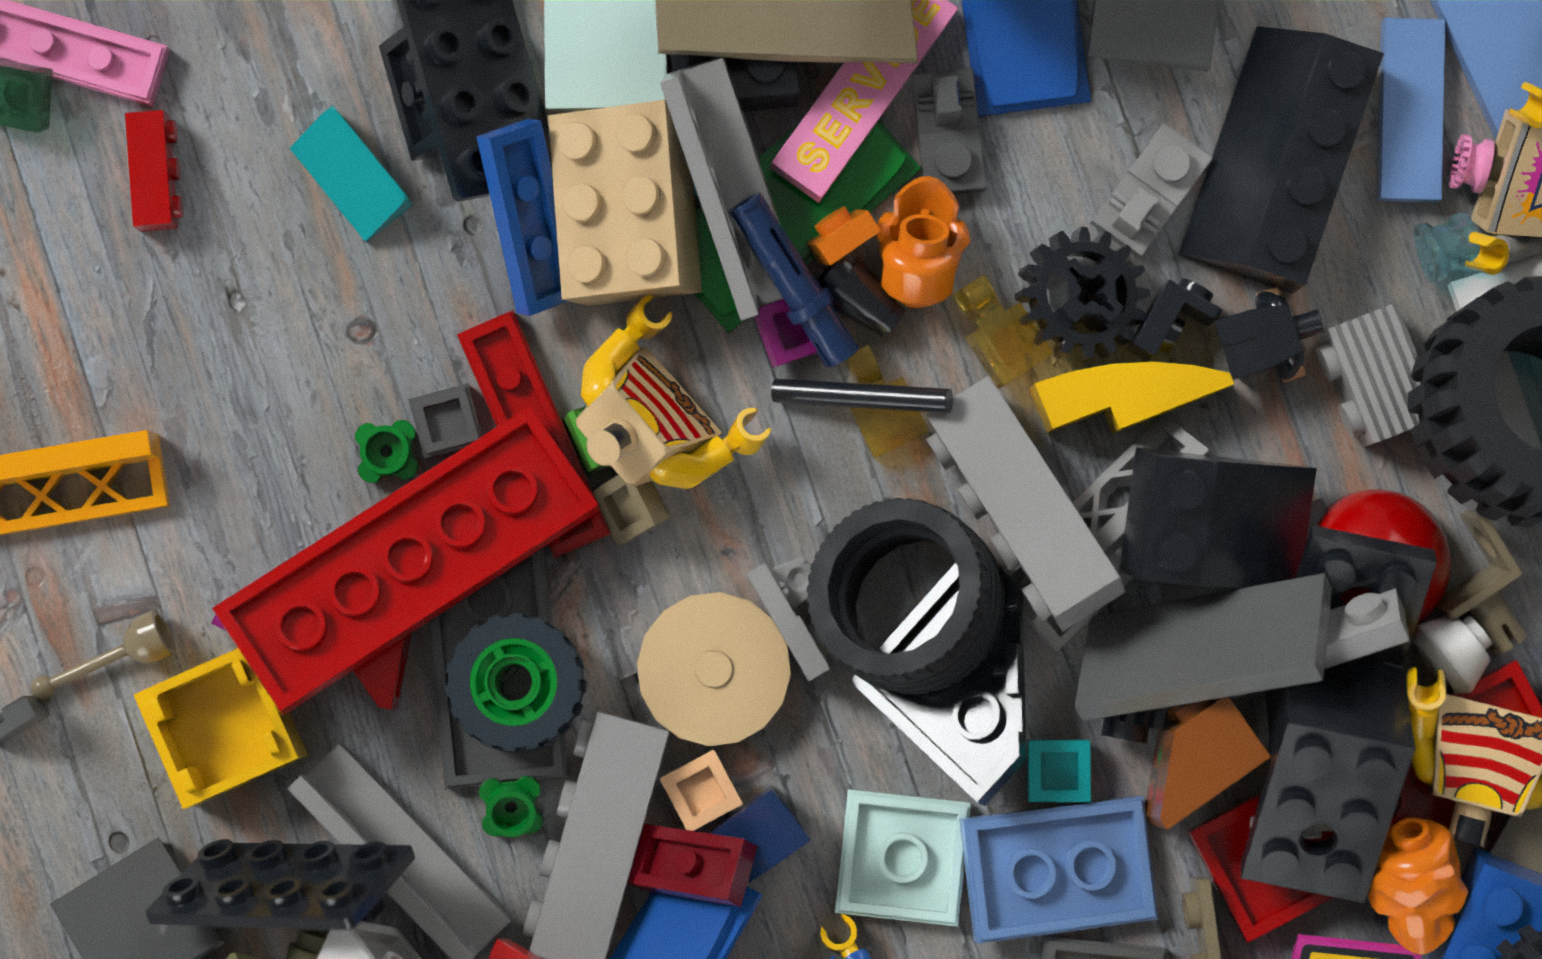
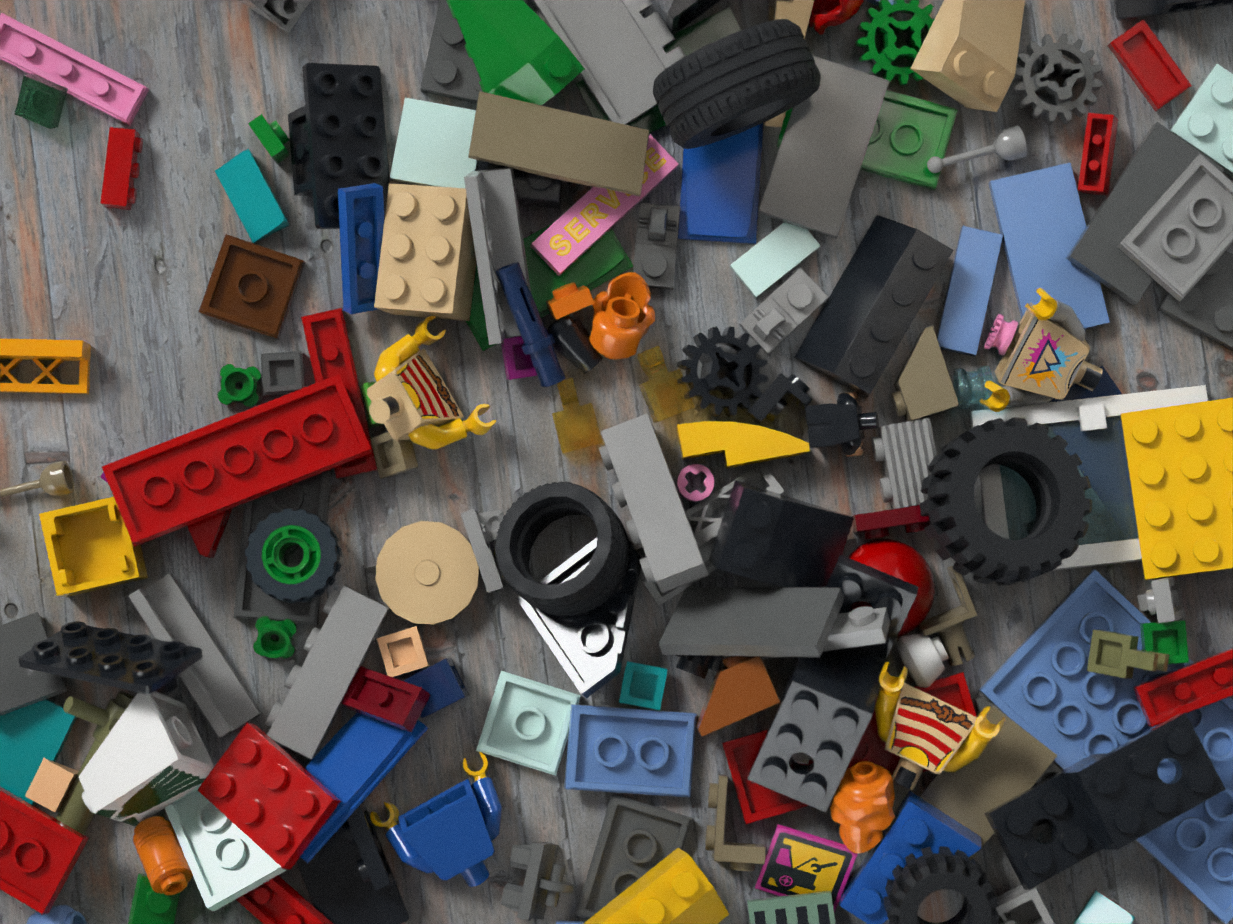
camera: 15 degrees right, 0 degrees up
(362, 83) = (271, 137): none -> green plate
(376, 305) = (252, 287): none -> reddish brown tile
(862, 395) = (561, 410): black bar -> none
(1093, 460) = (708, 483): none -> bright pink bush
(1122, 116) = (774, 257): none -> light aqua tile
(1350, 469) = (878, 523): none -> dark red plate
(1374, 250) = (924, 381): none -> dark tan slope

